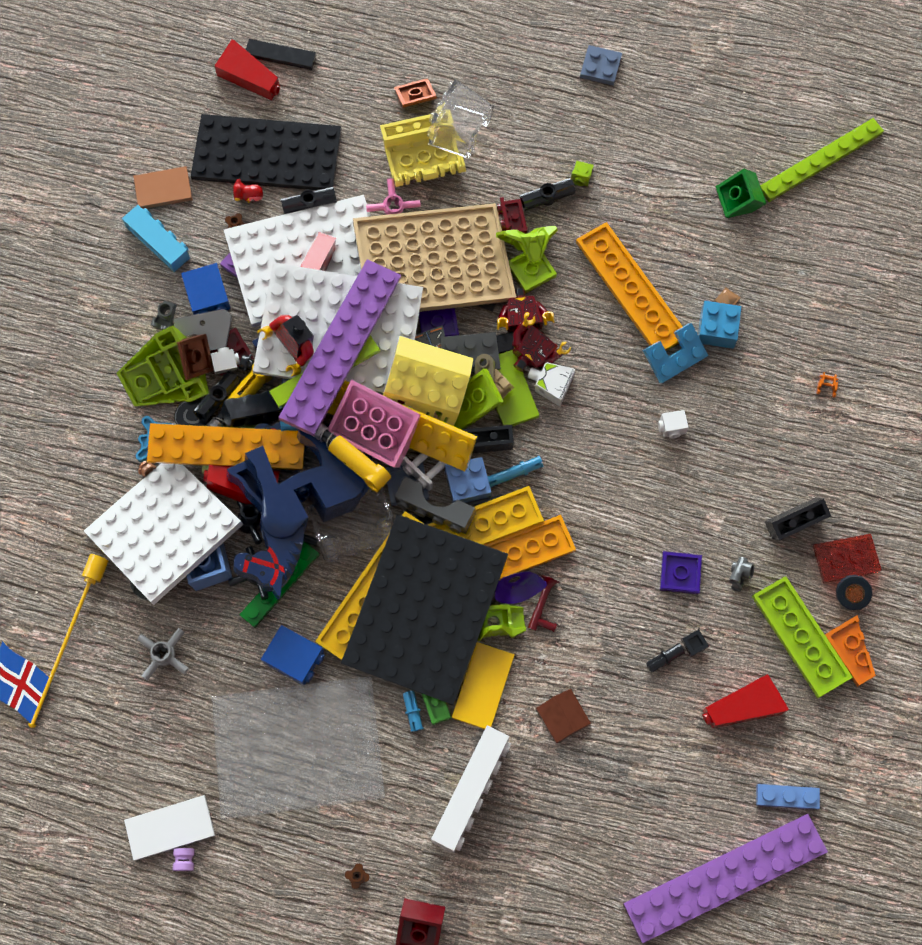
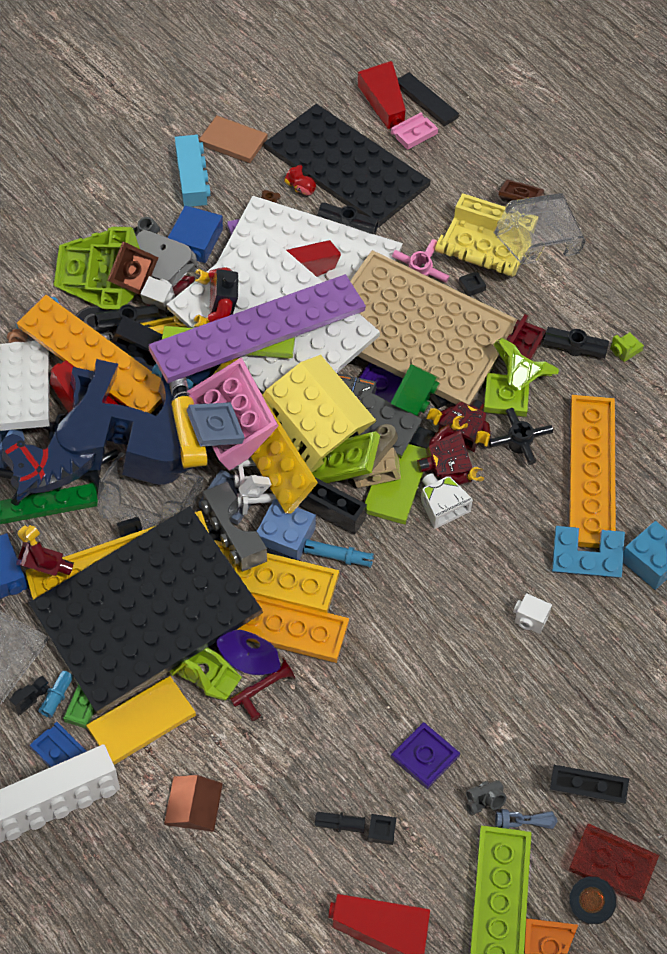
camera: 35 degrees right, 15 degrees down
(295, 90) = (414, 131): none -> bright pink plate
(324, 628) = (39, 558): none -> dark red torso
(361, 558) = (129, 526): none -> black plate
(377, 445) = (215, 424): none -> sand blue plate
(395, 730) = (26, 697): none -> black plate
(428, 467) = (254, 486): none -> white plate
(439, 195) = (472, 283): none -> black plate
(449, 748) = (56, 746): none -> blue plate
(475, 313) = (416, 390): none -> green slope
(572, 298) = (520, 436): none -> black bar
(785, 561) = (545, 820): none -> sand blue piece

